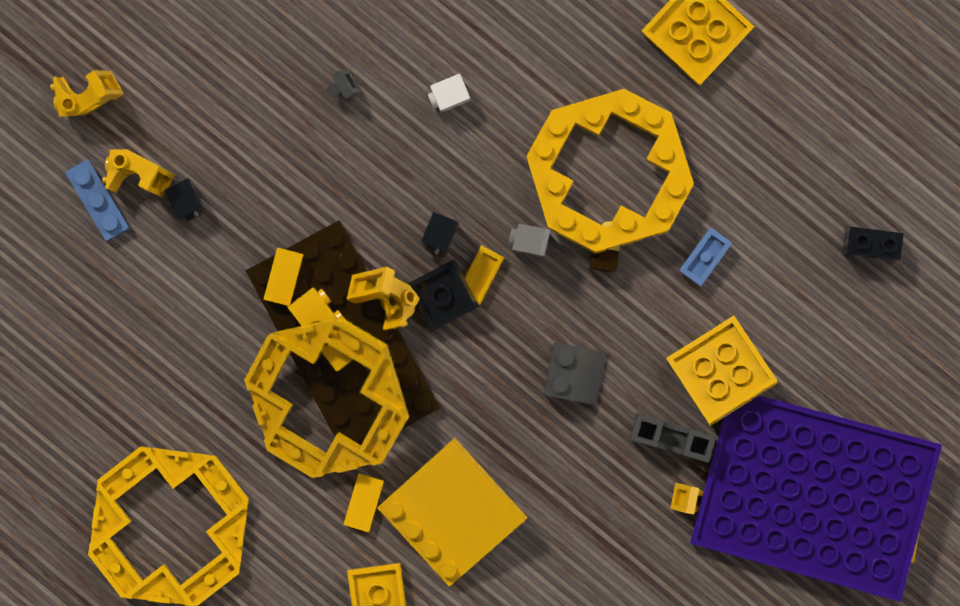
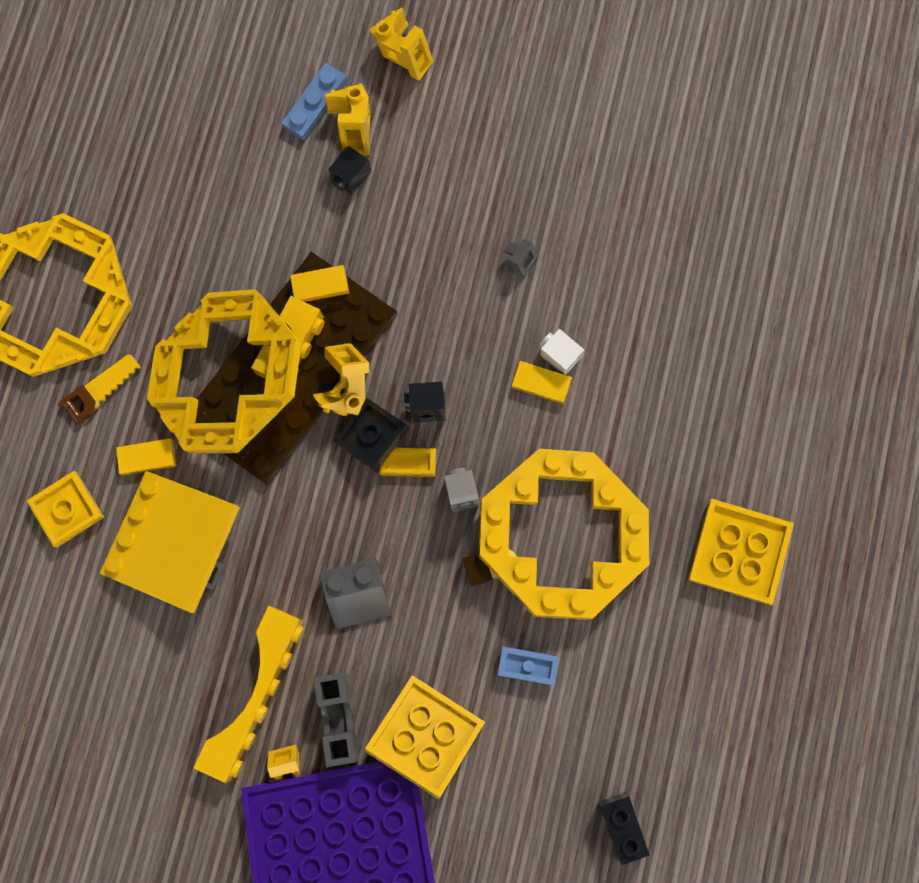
camera: 70 degrees right, 10 degrees down
(279, 517) = (98, 389): none -> piece
(466, 123) = (541, 382): none -> yellow tile
(651, 543) = (223, 752): none -> yellow arch

